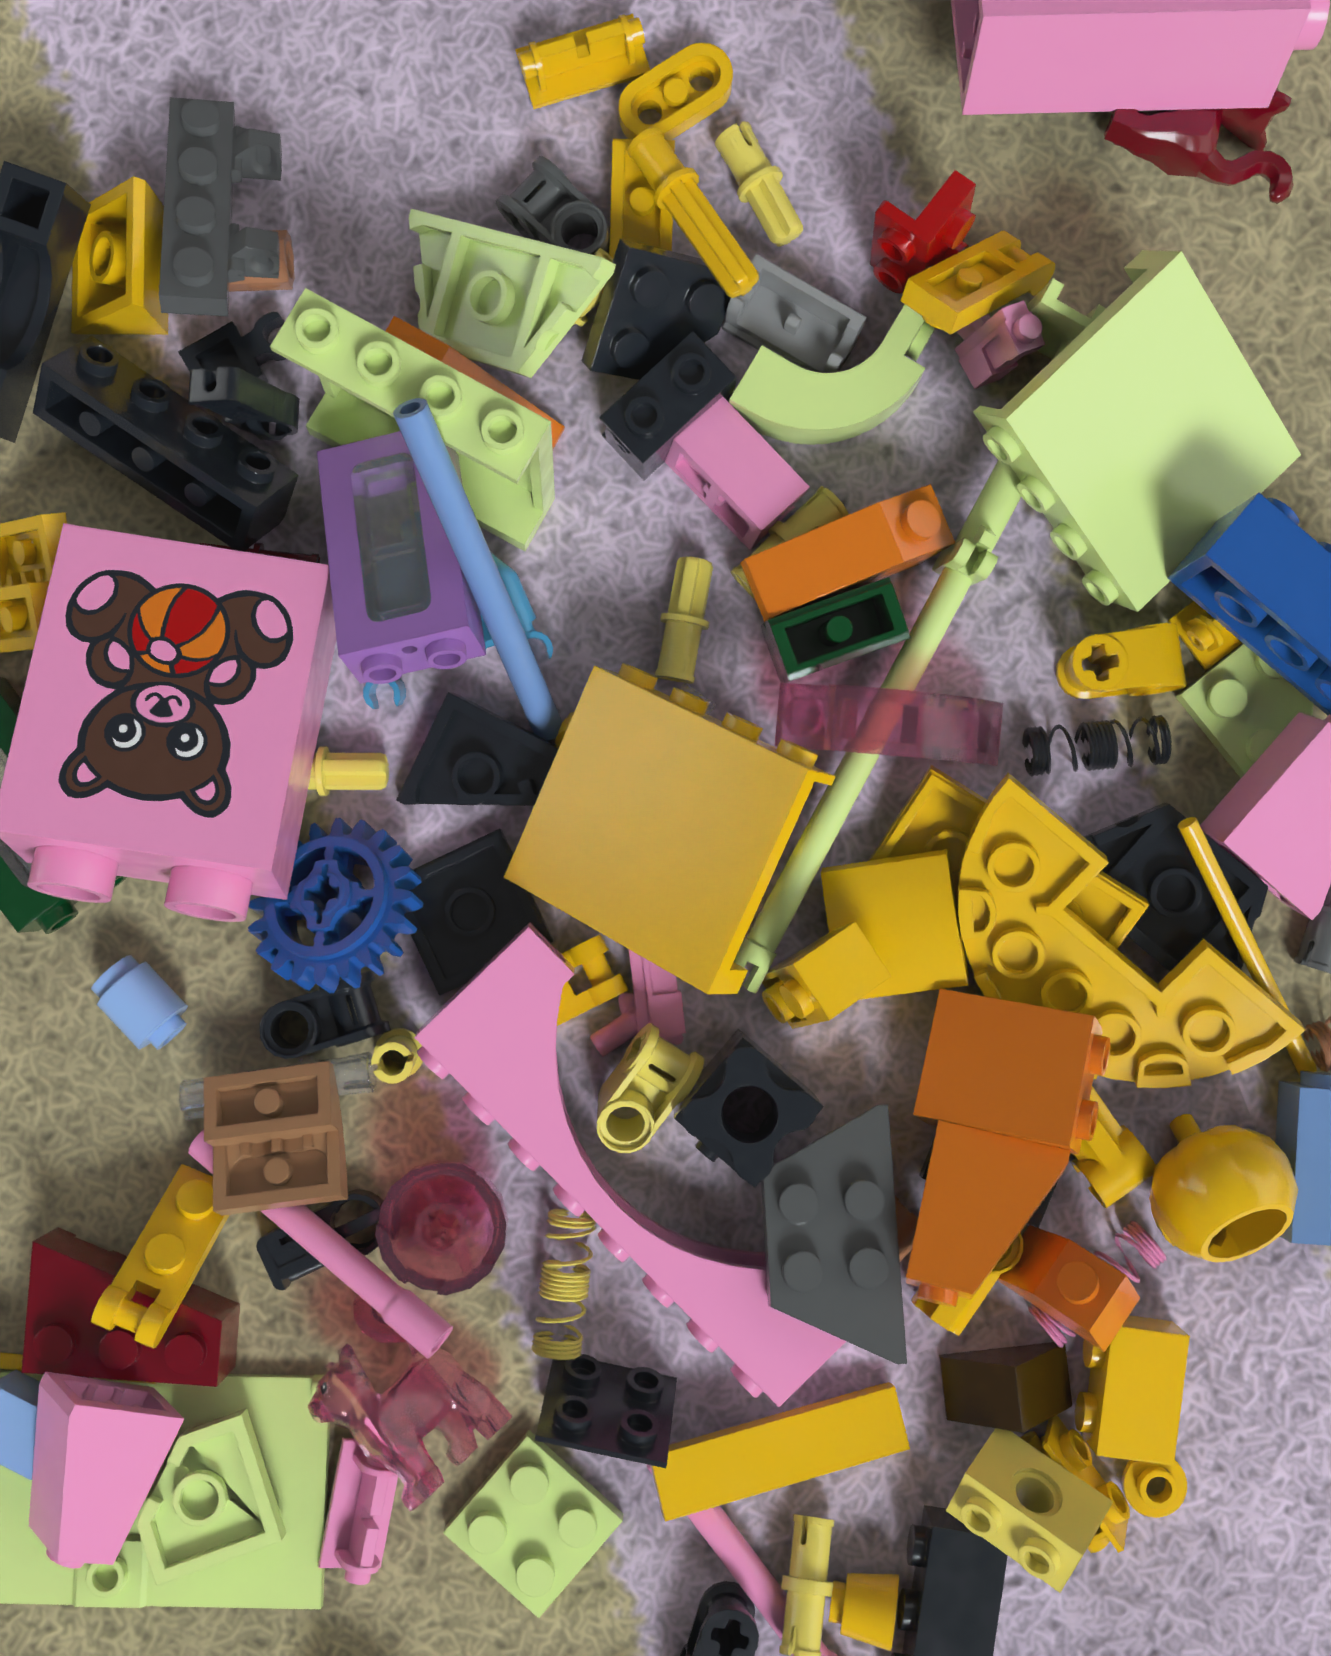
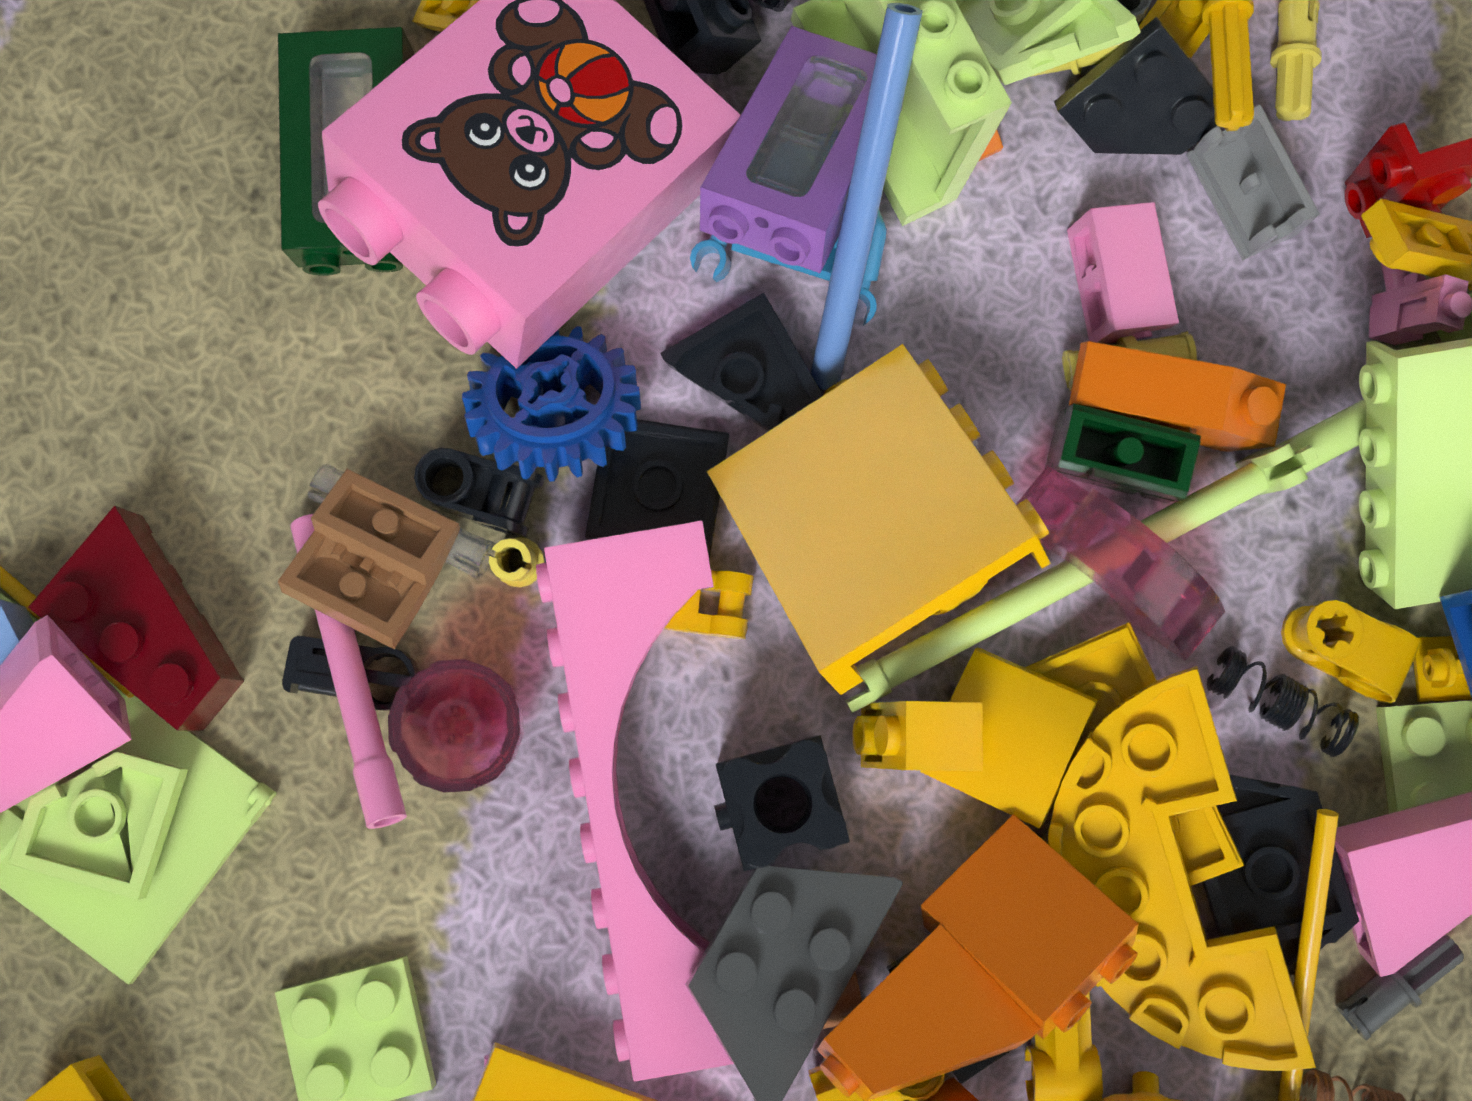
camera: 35 degrees right, 5 degrees down
(140, 1003) = (338, 376): light blue brick -> none
(163, 1259) = (207, 595): yellow plate -> none
(348, 771) = (636, 304): light yellow axle -> none
(357, 1515) = (222, 920): bright pink hinge -> none
(422, 1398) = (340, 862): clear pink animal -> none
(564, 1288) = (521, 851): light yellow piece -> none
(608, 1410) = (487, 980): black hinge -> none
(649, 1079) = (715, 725): light yellow piece -> none
(653, 1001) = (753, 669): bright pink piece -> none
(666, 403) = (1102, 175): black hinge -> none
(684, 620) = (999, 364): light yellow axle -> none
(835, 406) = (1243, 274): yellowish green arch -> none

